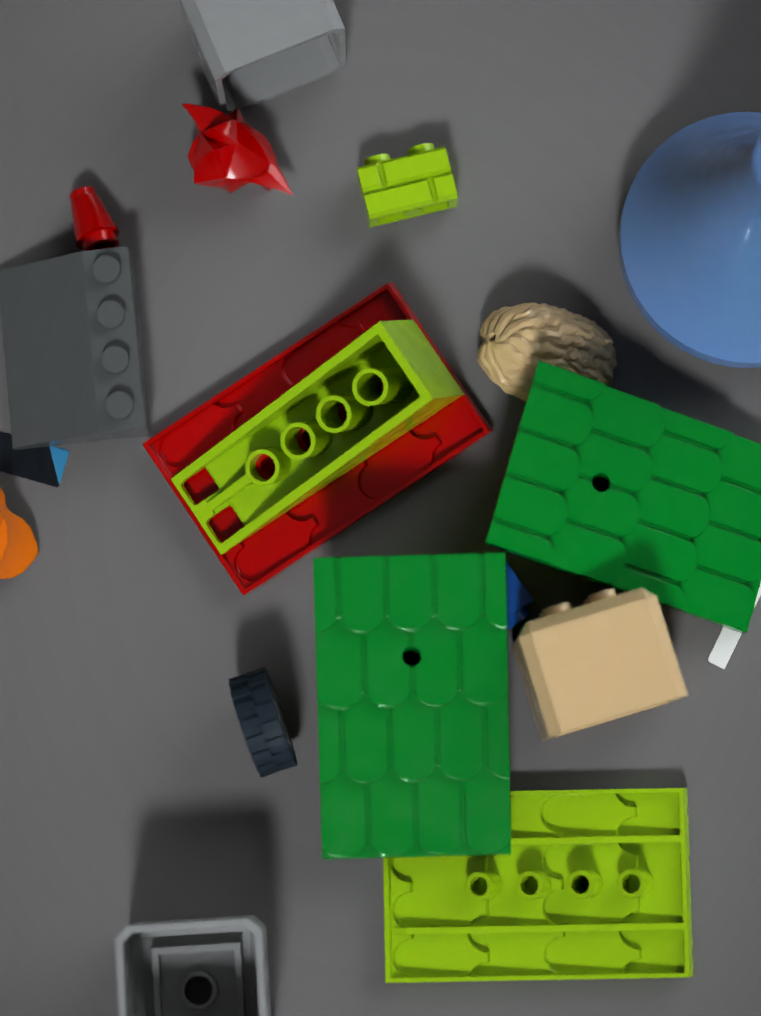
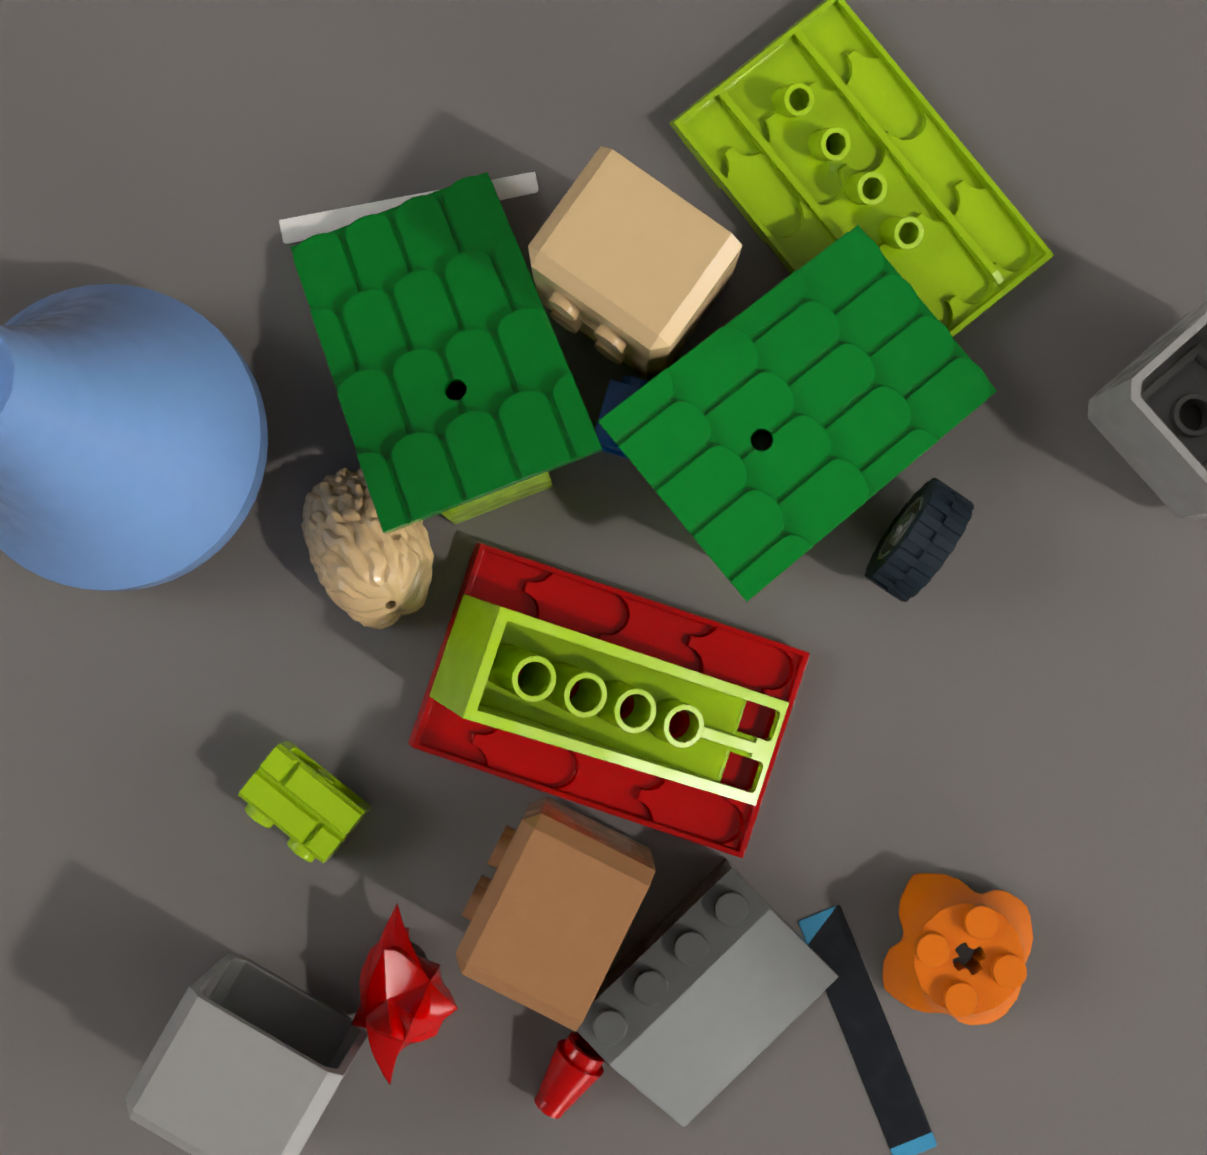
camera: 125 degrees left, 5 degrees up
(214, 290) = (554, 910): none -> medium nougat plate

